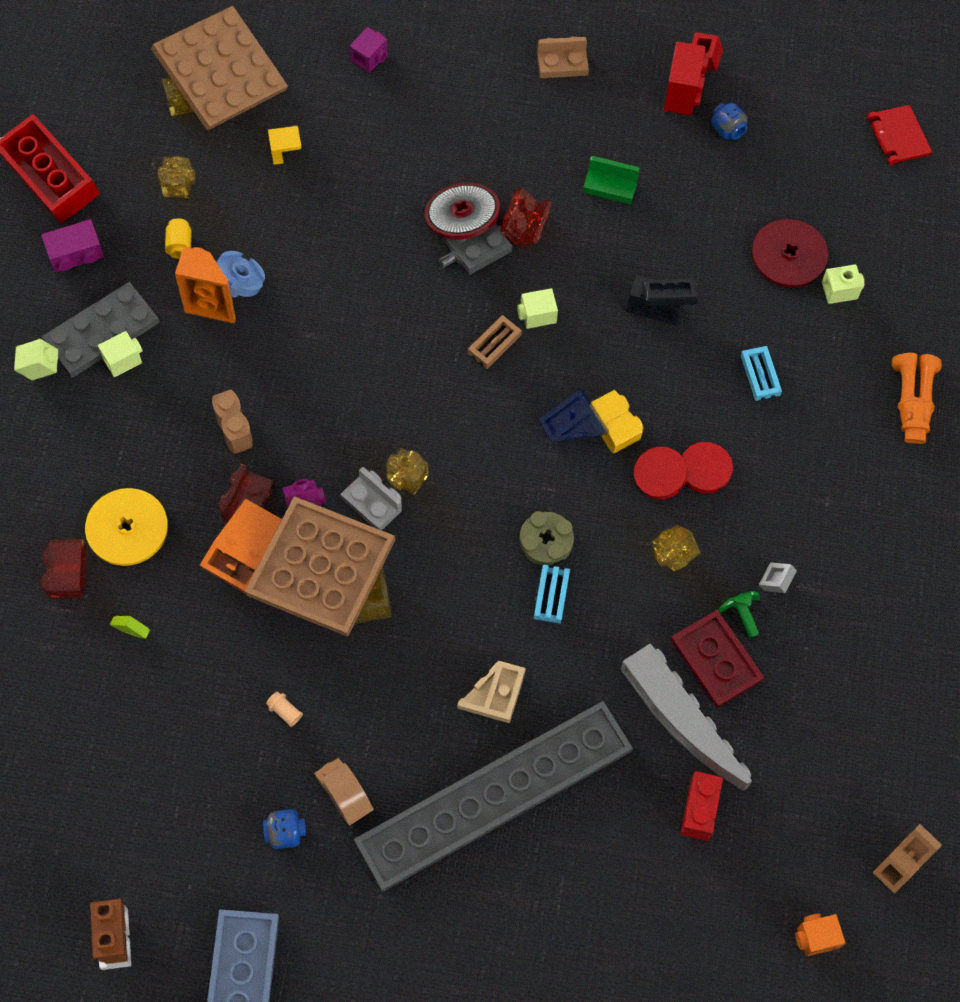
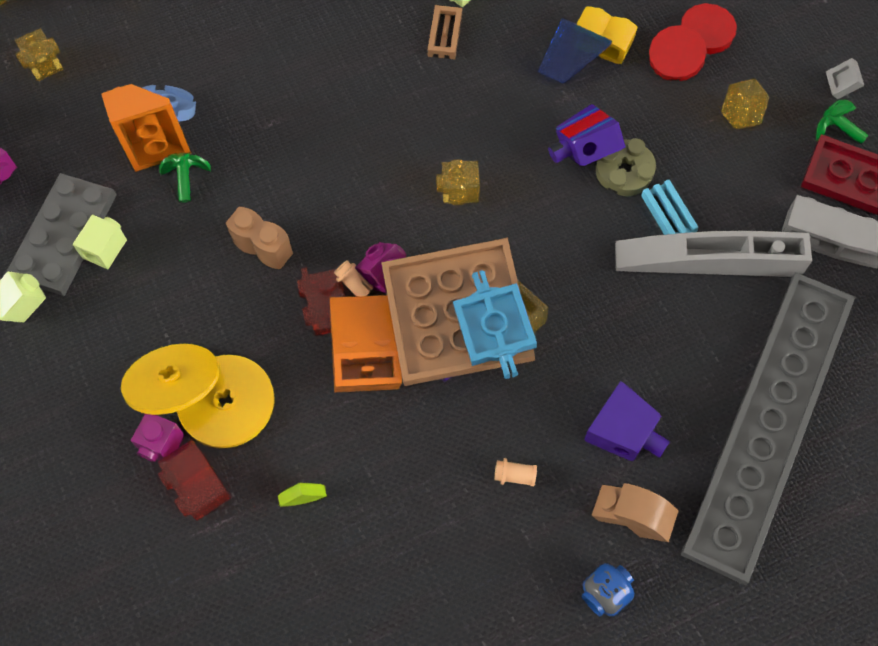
camera: 30 degrees left, 0 degrees up
(60, 522) = (156, 437): none -> magenta brick
(98, 486) = (170, 379): none -> yellow piece
(177, 237) = (81, 107): yellow brick -> none
(219, 329) = (183, 162): none -> green plant
(275, 495) = (352, 279): none -> light nougat pin
(333, 591) = (494, 324): none -> dark azure plate
(372, 499) = (444, 226): light grey bracket -> none
(386, 728) = (626, 426): none -> dark purple torso
(495, 693) = (695, 328): tan wing -> none
(527, 496) = (587, 137): none -> dark purple torso
(554, 648) = (717, 253): none -> light grey slope

